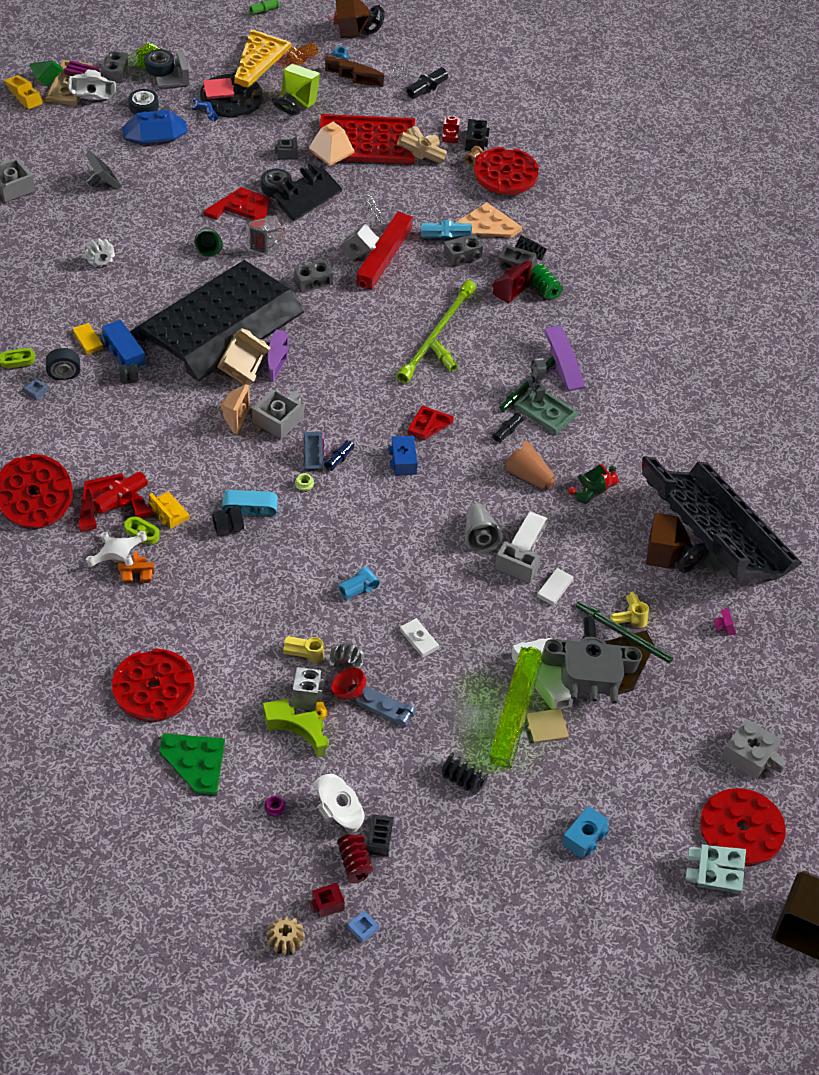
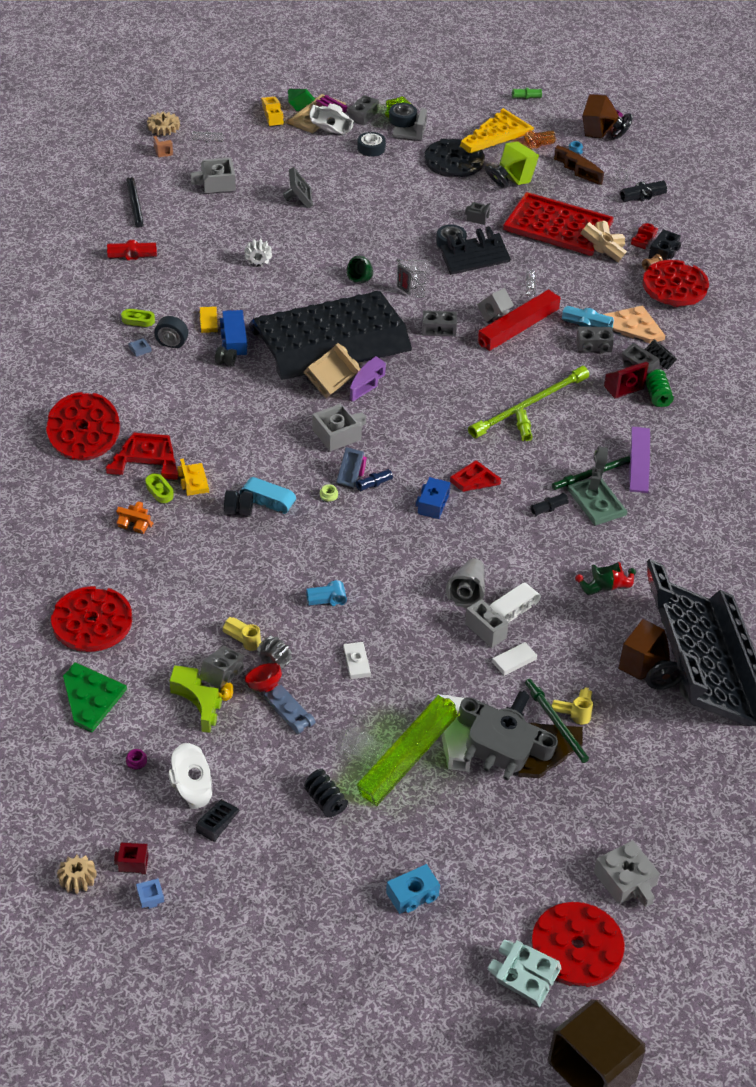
camera: 25 degrees right, 5 degrees down
(116, 549) = (126, 495): white piece -> none
(120, 492) = (155, 449): red piece -> none
(154, 127) = (369, 165): blue wedge -> none
(200, 104) = (425, 159): blue arm -> none
(218, 88) = (444, 148): coral piece -> none
(236, 407) = (302, 411): light nougat slope -> none
(242, 202) = (412, 247): red wing -> none
(331, 144) = (519, 217): light nougat slope -> none
(355, 857) = (179, 830): dark red piece -> none
(530, 467) = (547, 542): nougat cone -> none
(547, 725) = (434, 780): tan piece -> none
(725, 623) = (667, 747): dark pink tile -> none

